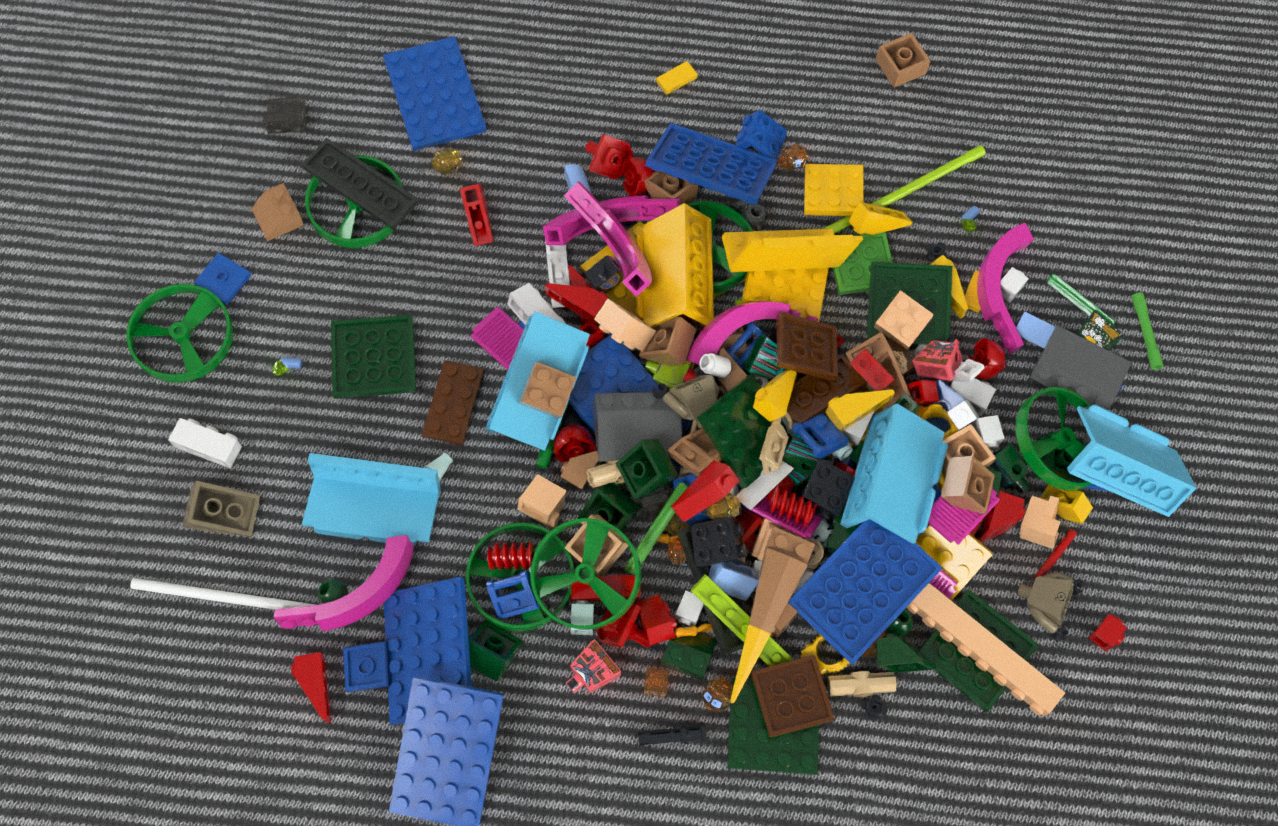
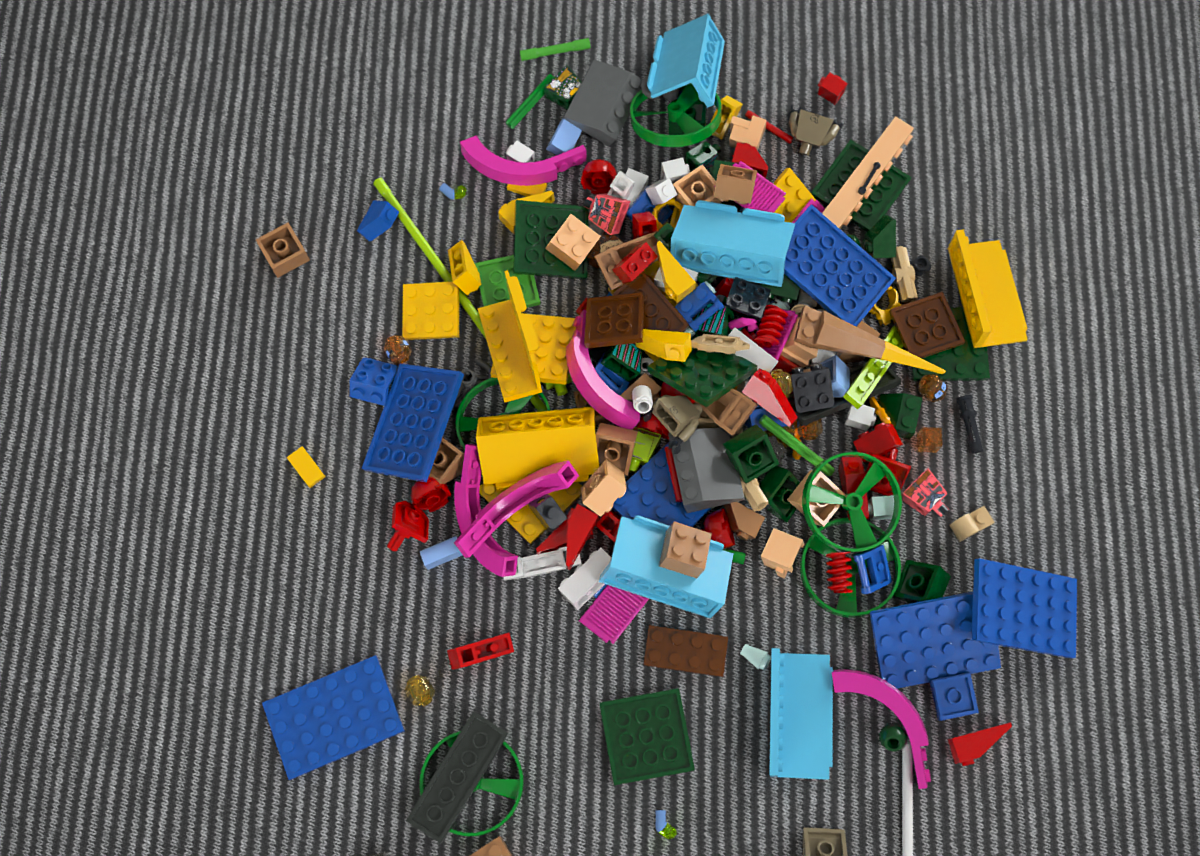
camera: 90 degrees left, 5 degrees up
(555, 719) = (971, 523): none -> tan plate
(799, 477) = (742, 322): none -> dark pink arm
(834, 778) = (987, 292): none -> yellow piece
(935, 145) = (377, 219): none -> blue slope
(939, 247) = (490, 225): black plate -> none
(964, 637) = (862, 190): none -> black hinge

